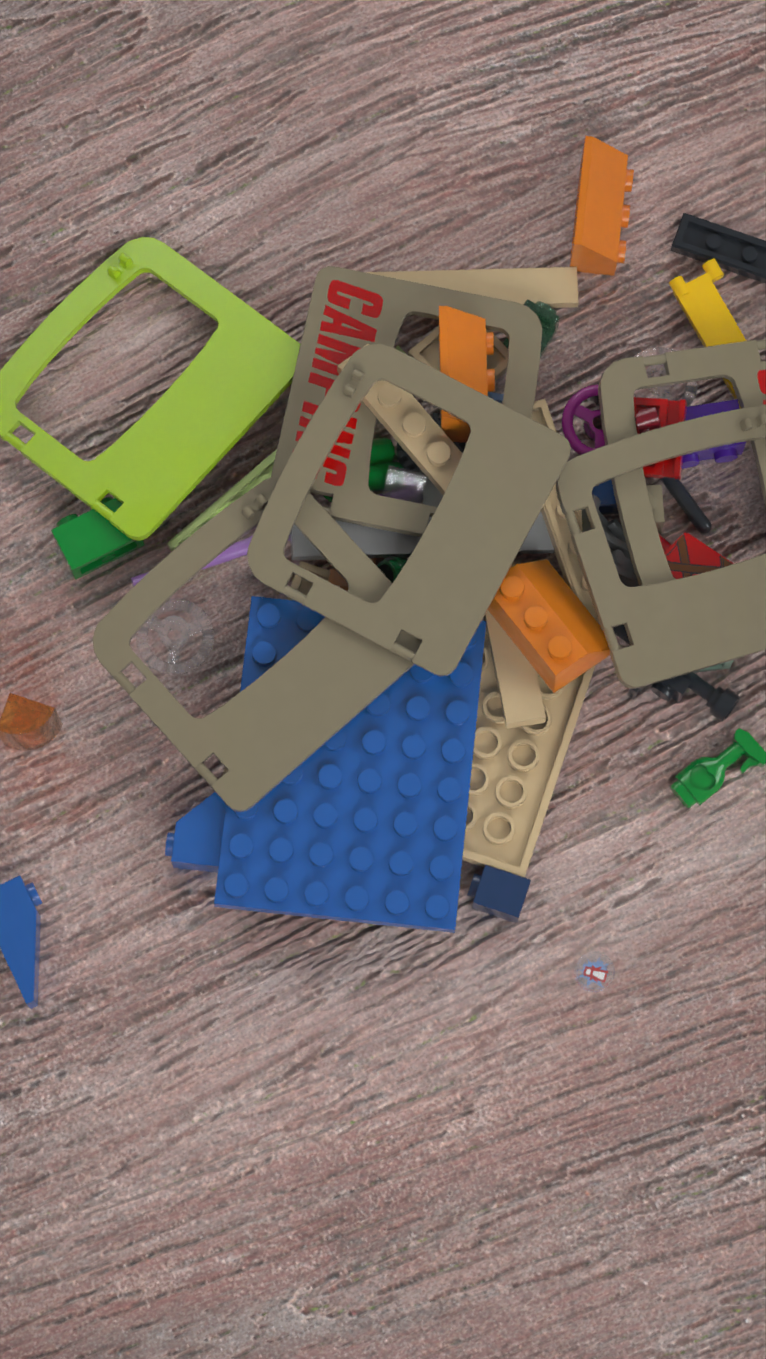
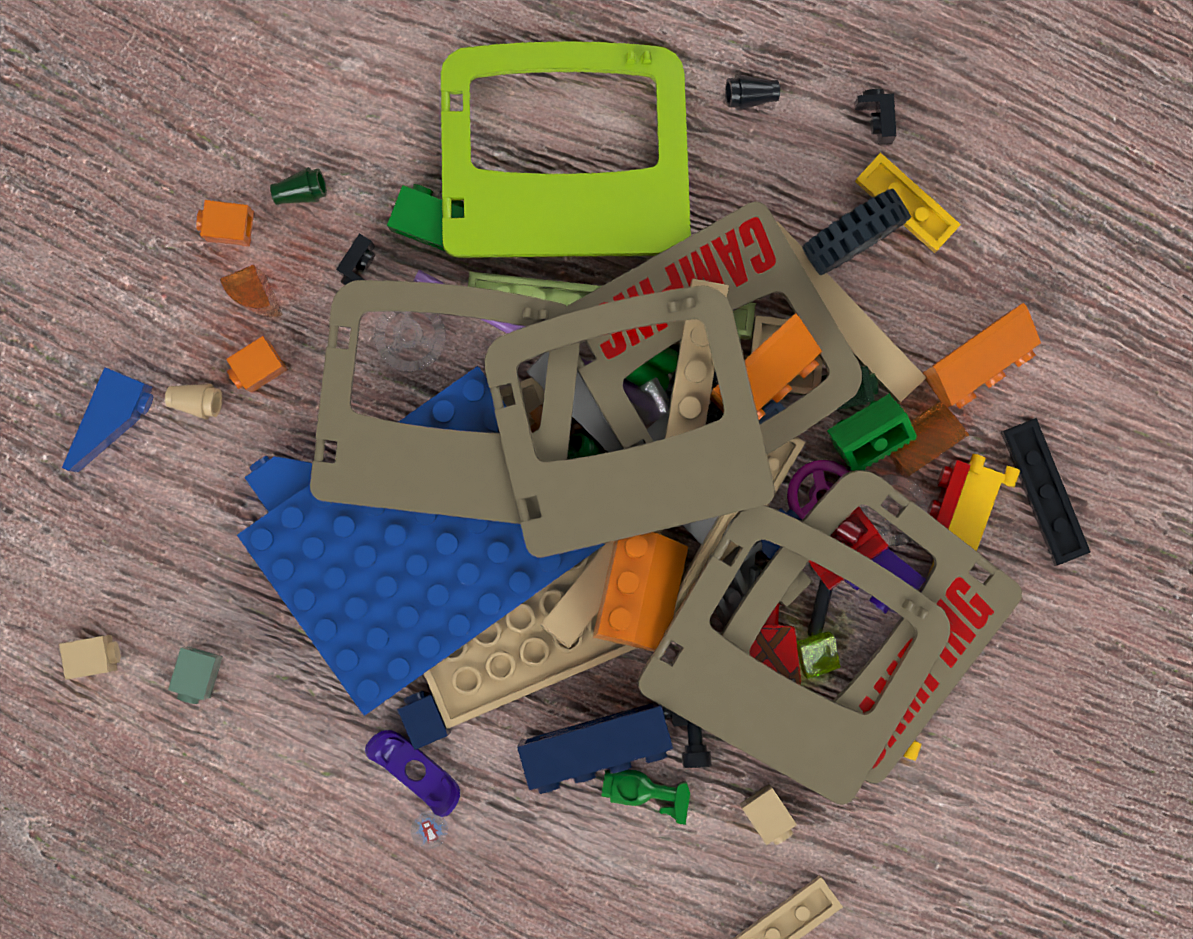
camera: 55 degrees right, 10 degrees up
(68, 852) = (197, 400): none -> tan cone
(75, 619) = (357, 257): none -> black bracket
(86, 777) = (255, 365): none -> orange brick
(202, 1123) = (89, 656): none -> tan brick
(225, 206) = (749, 91): none -> black cone
(295, 1049) = (194, 674): none -> sand green brick
(342, 124) = (883, 120): none -> black bracket
(414, 214) = (856, 231): none -> black wheel
(425, 163) = (928, 219): none -> yellow plate
(564, 934) = (435, 789): none -> dark purple piece
(584, 342) = (872, 433): none -> green brick
(623, 310) = (936, 432): none -> clear orange brick
(640, 773) = (595, 746): none -> dark blue brick
(678, 317) = (952, 482): none -> red plate
(725, 535) = (818, 654): none -> clear neon green plate

